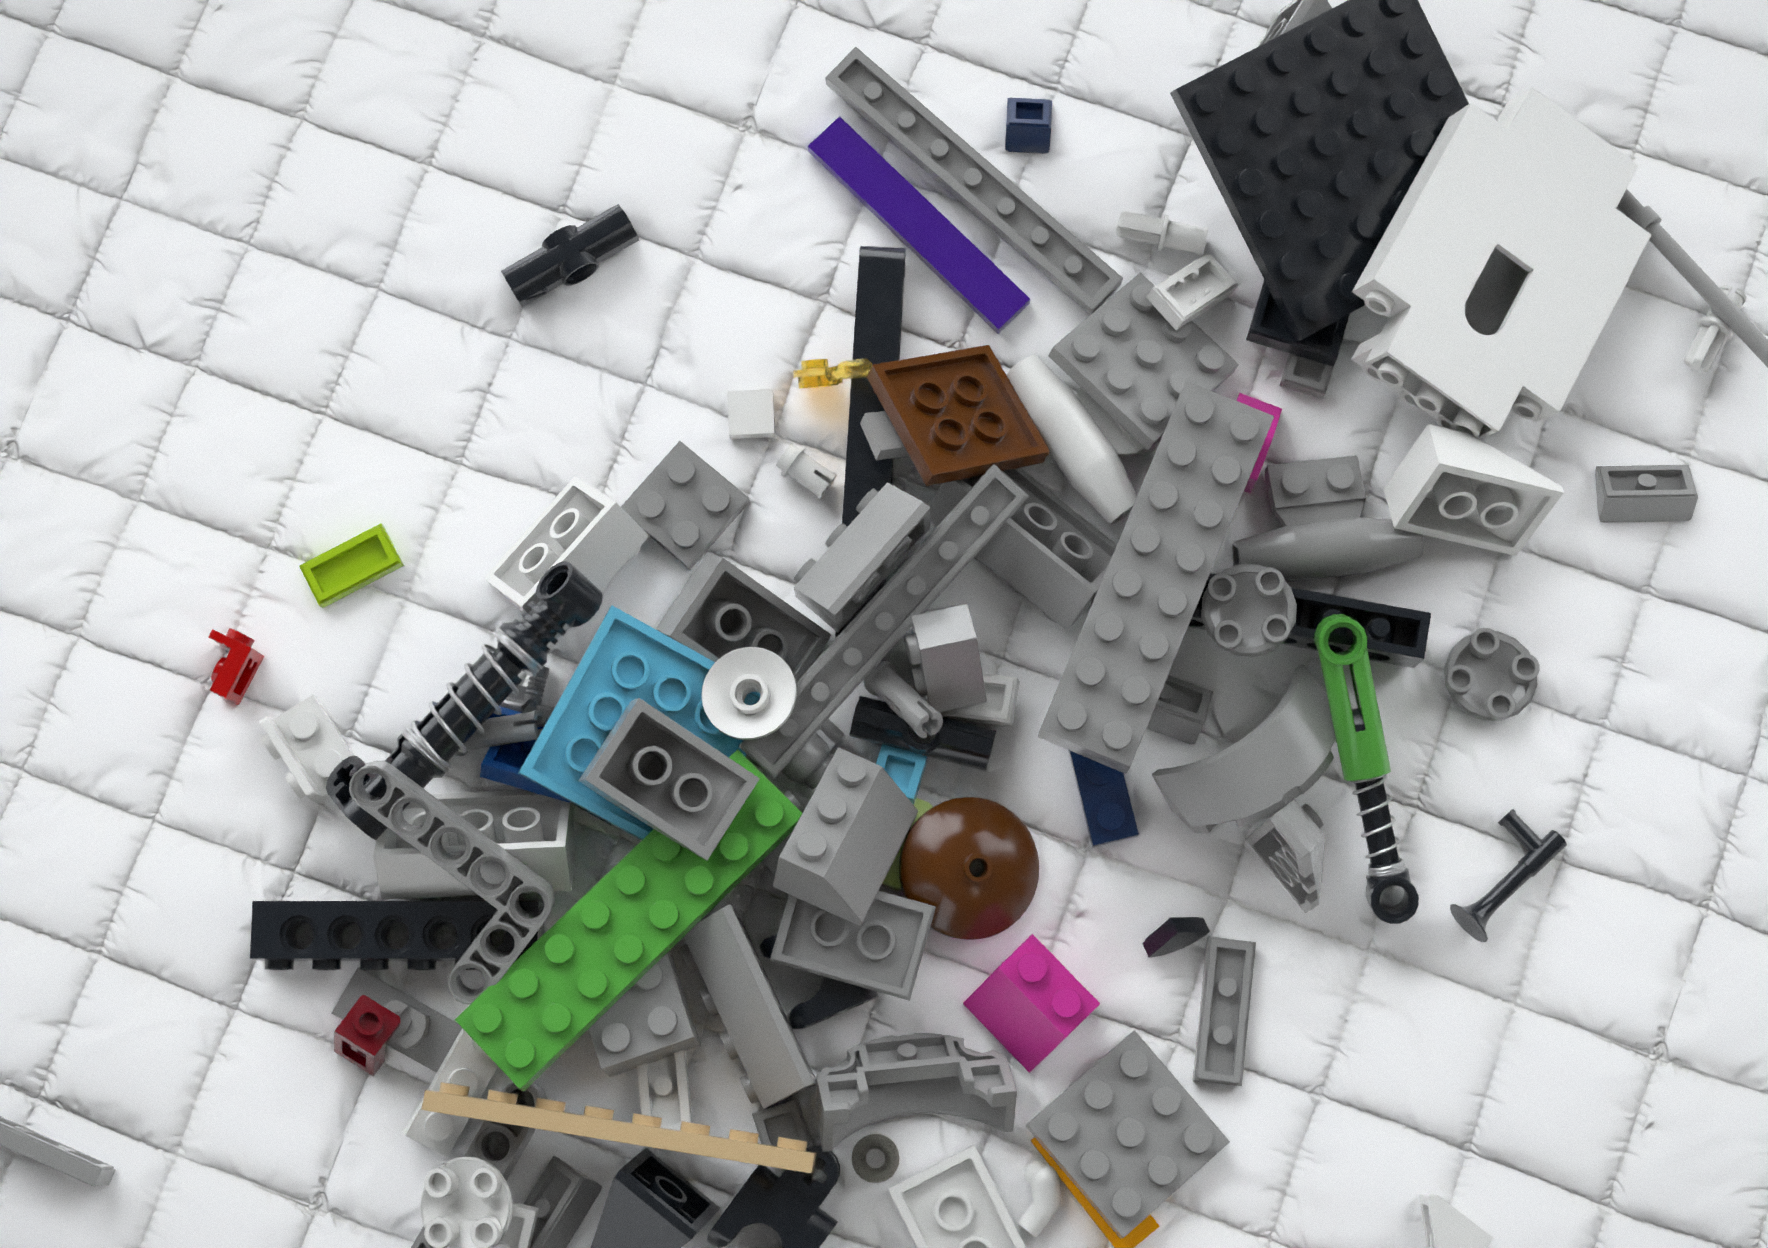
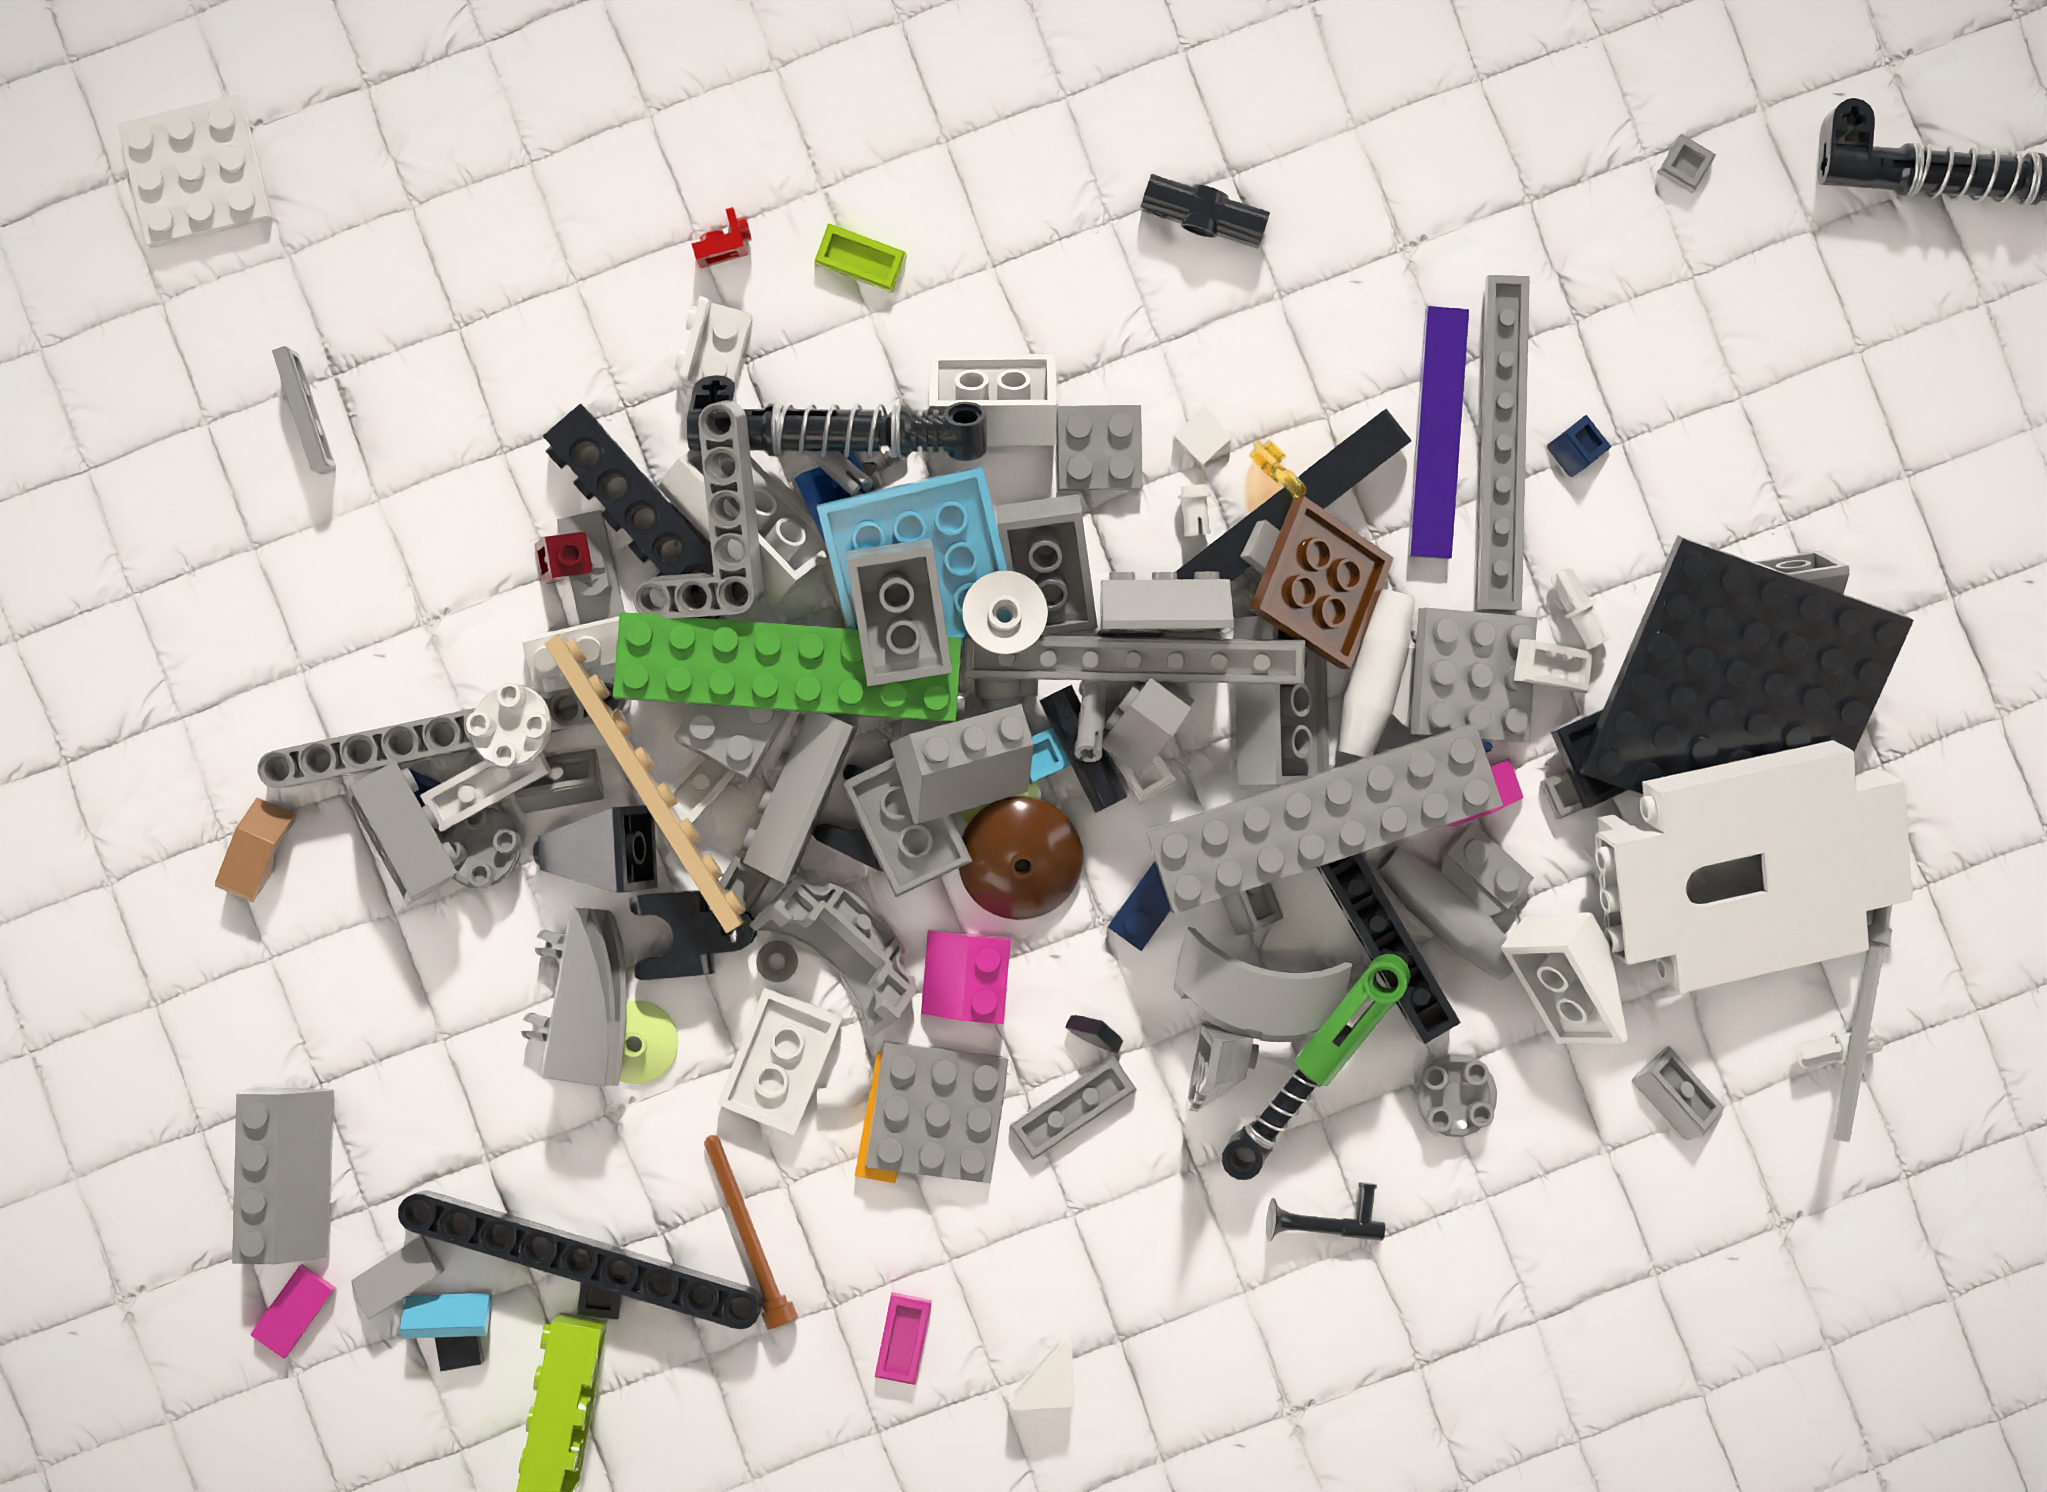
camera: 40 degrees right, 10 degrees up
(1248, 609) = (1354, 899): light grey dish -> none

